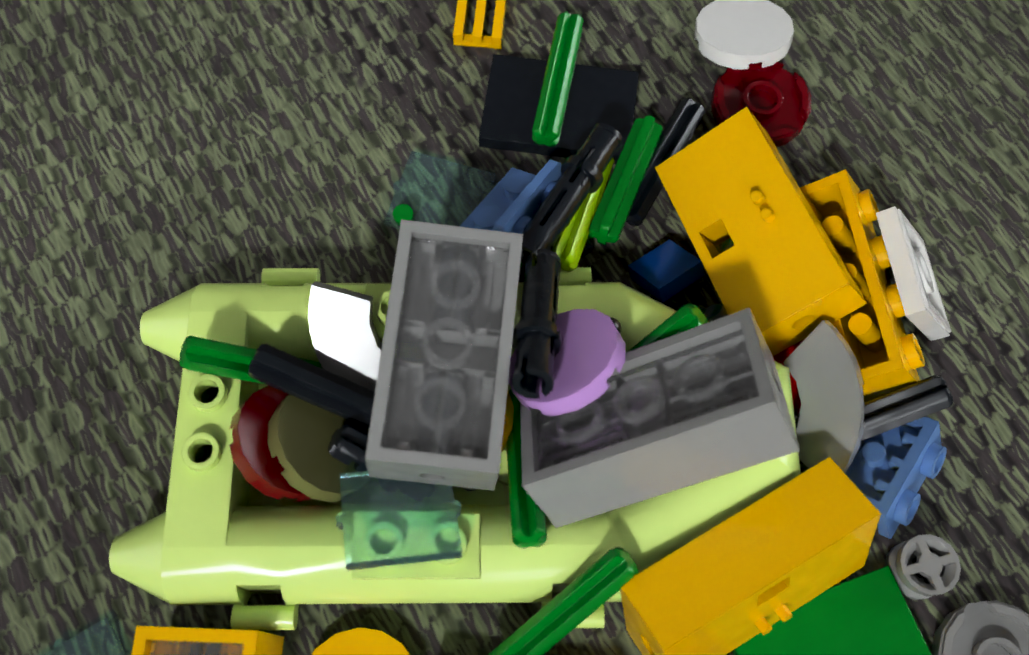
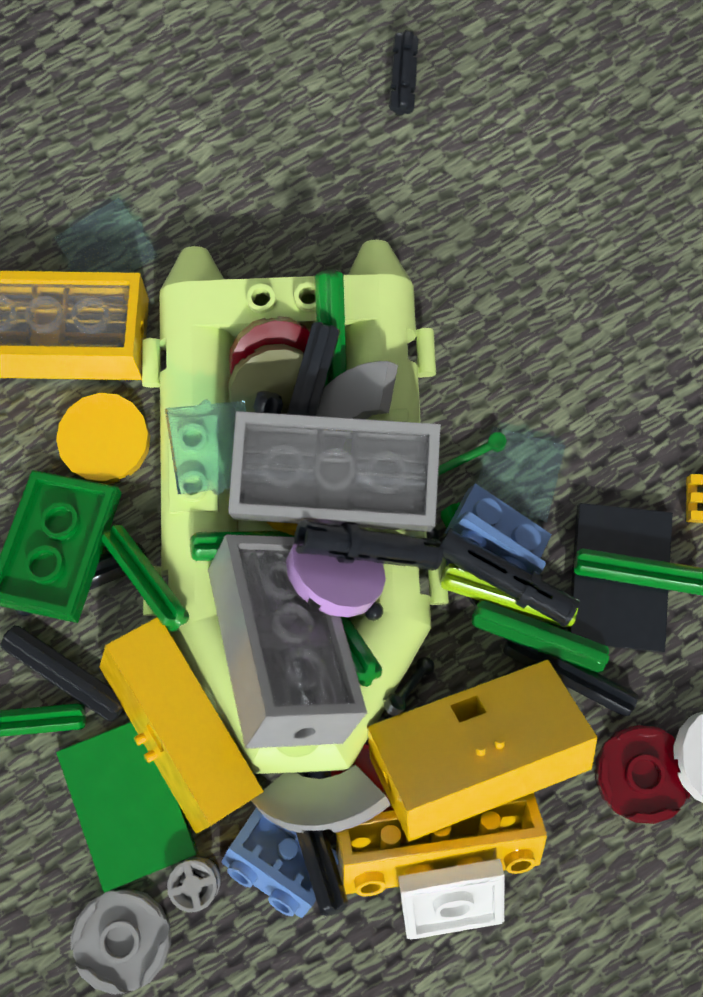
camera: 90 degrees right, 10 degrees up
(666, 270) = (454, 671): blue tile -> none

